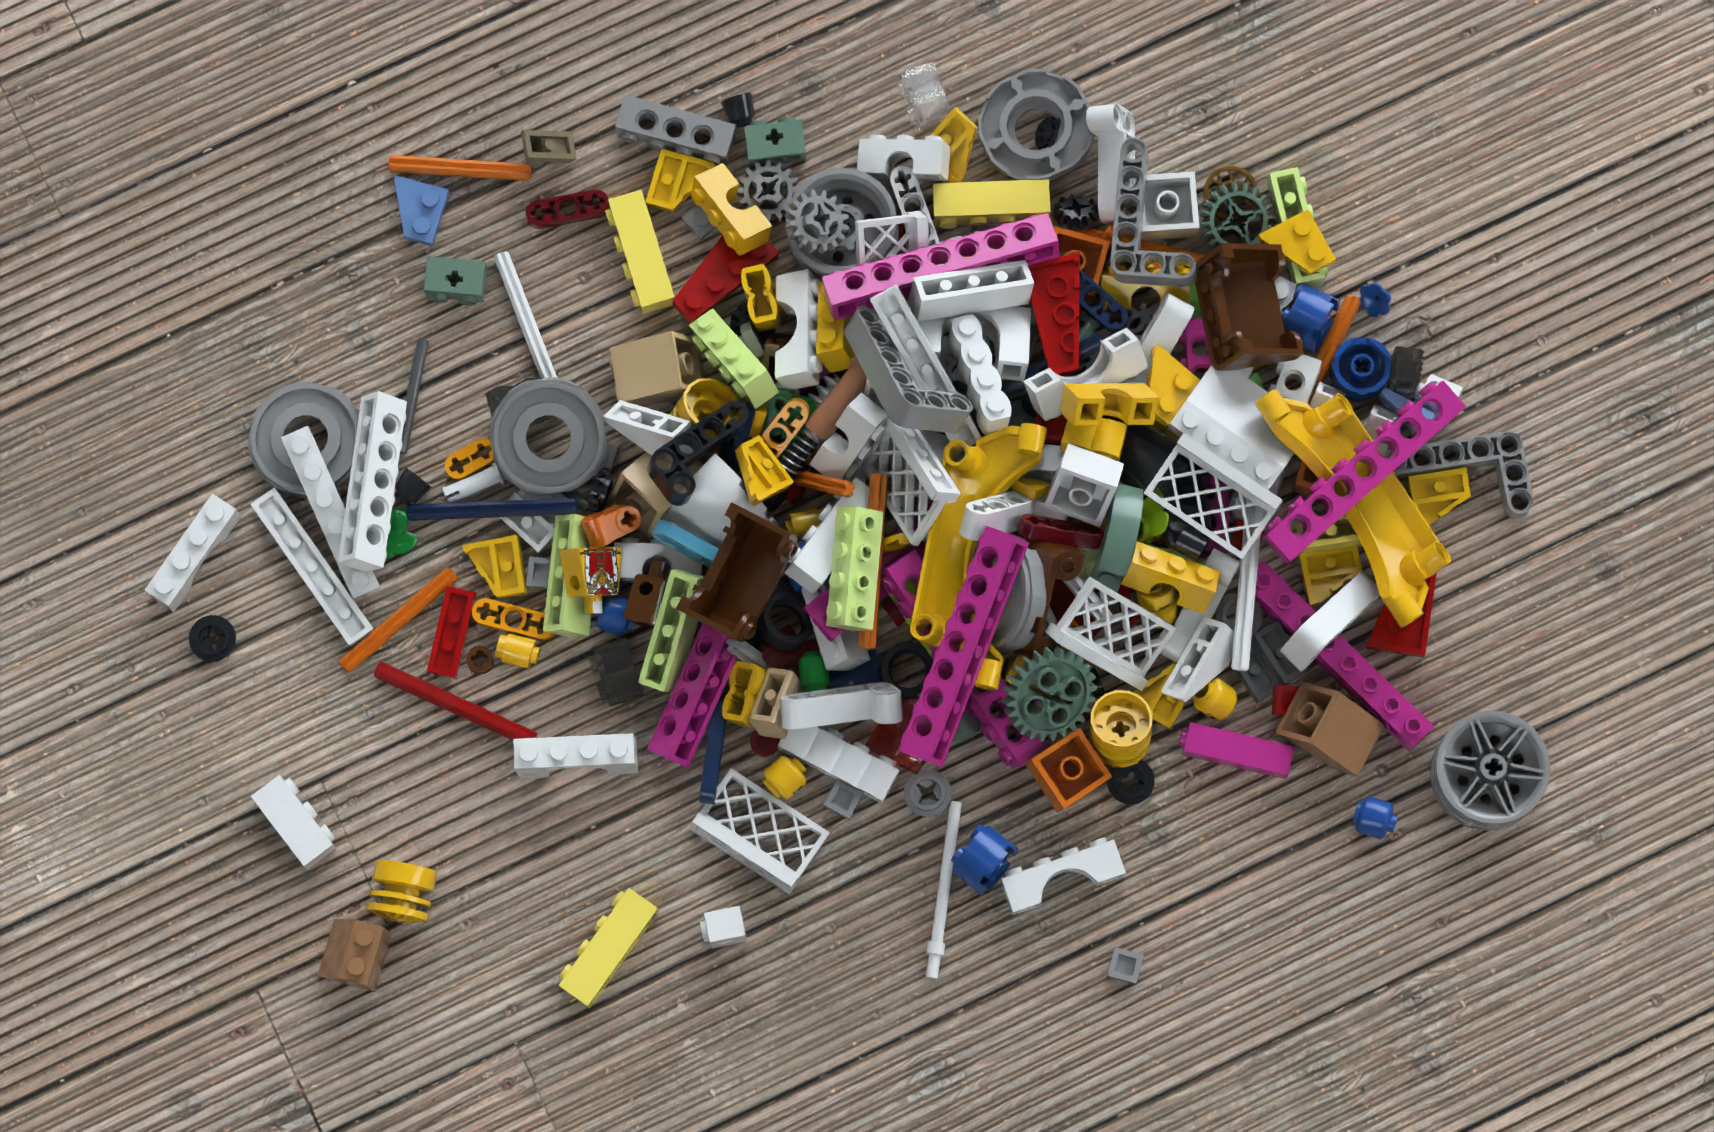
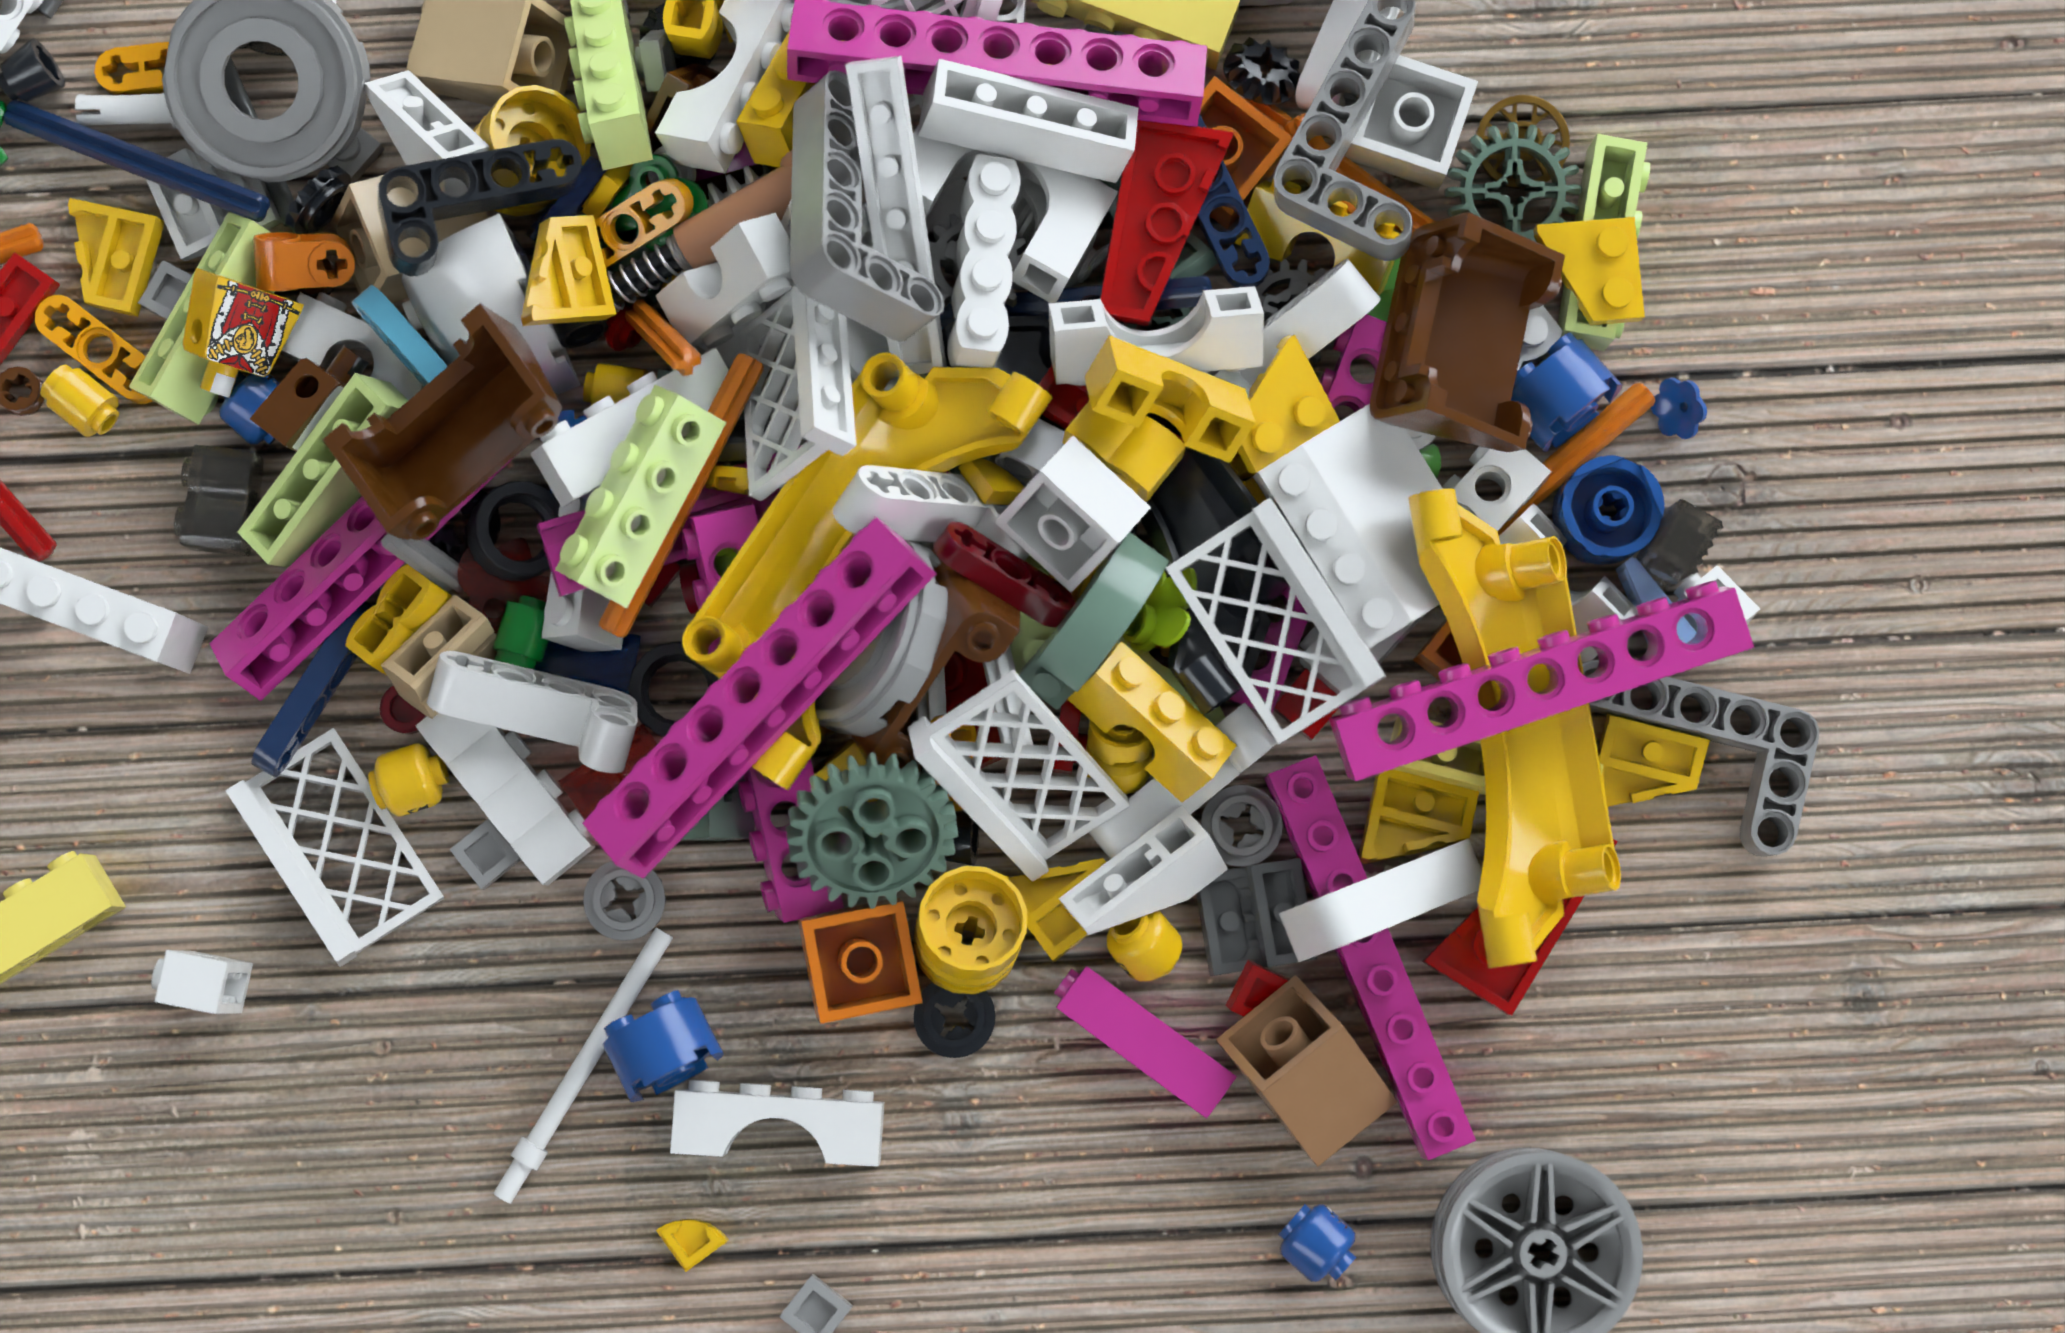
camera: 20 degrees right, 5 degrees up
(1042, 958) = (691, 1240): none -> yellow tile
(1246, 595) = (1263, 802): white axle -> none

